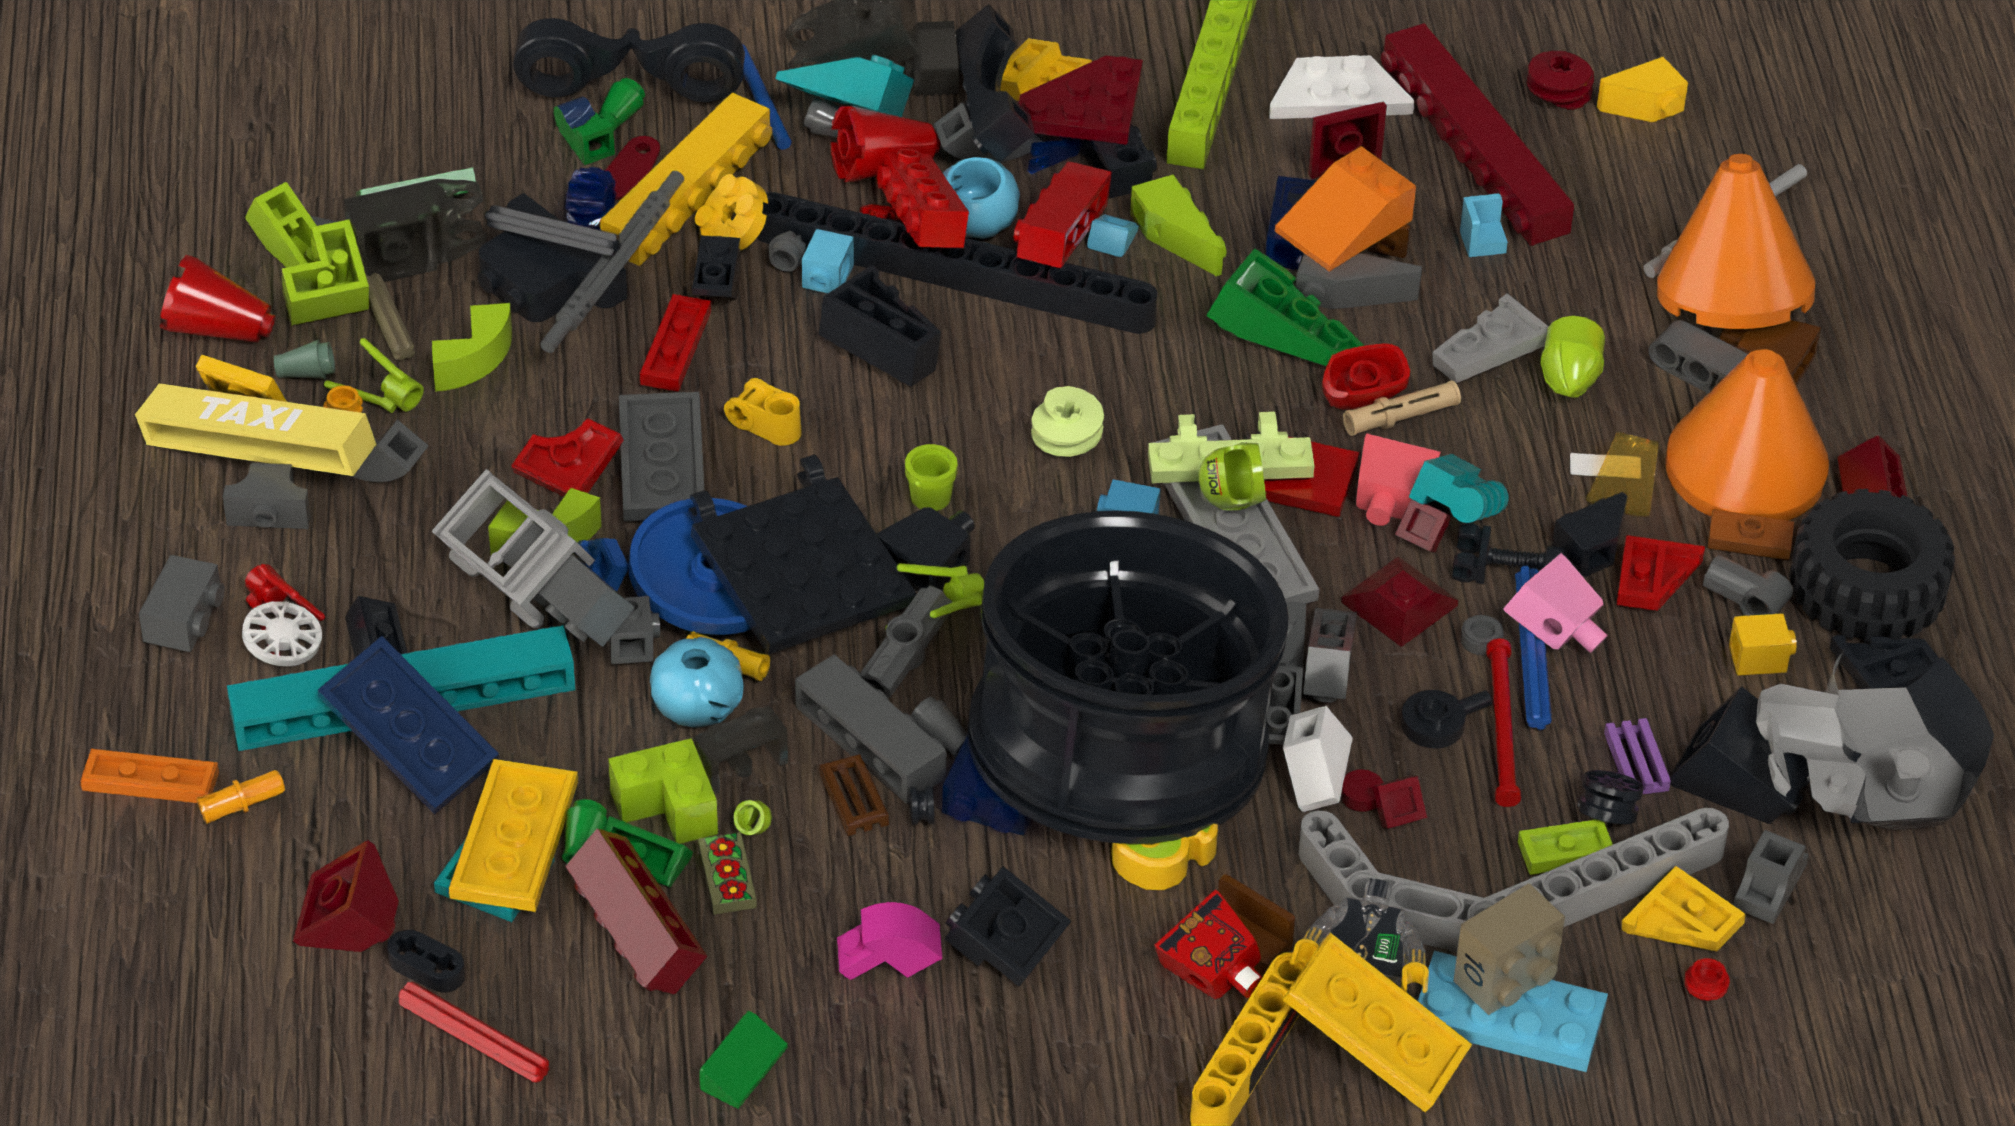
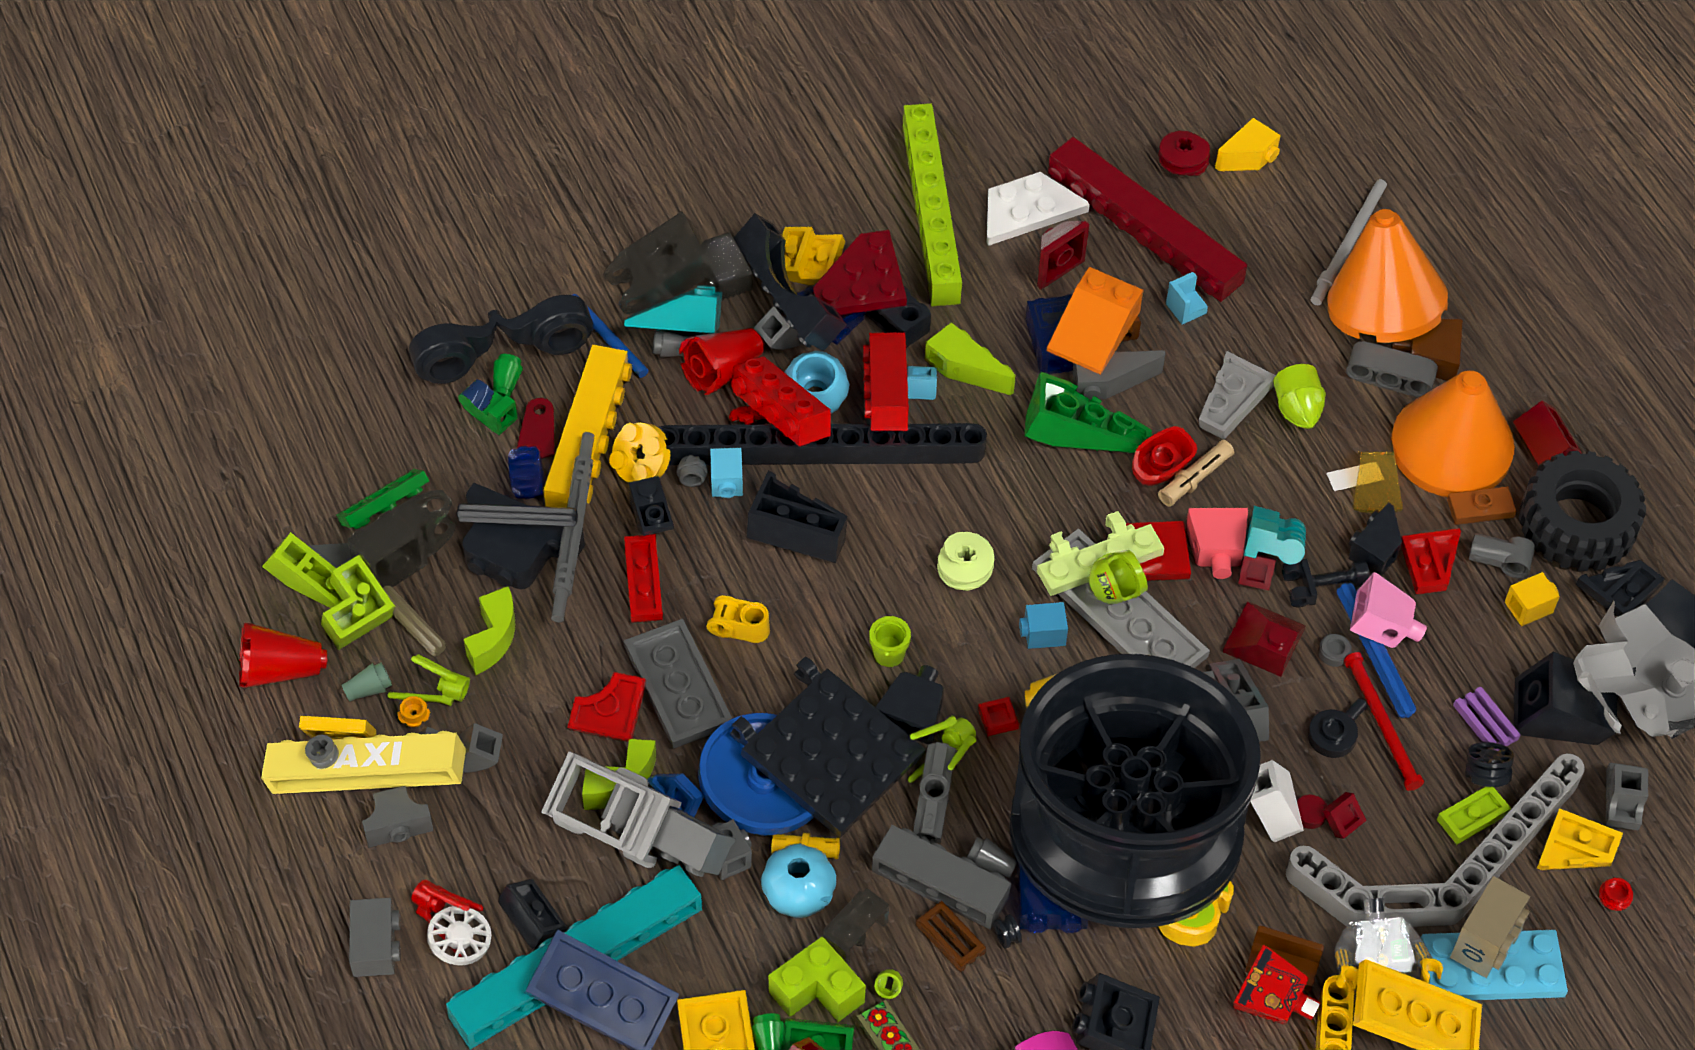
camera: 20 degrees left, 10 degrees up
(210, 399) = (317, 743): none -> dark grey bush

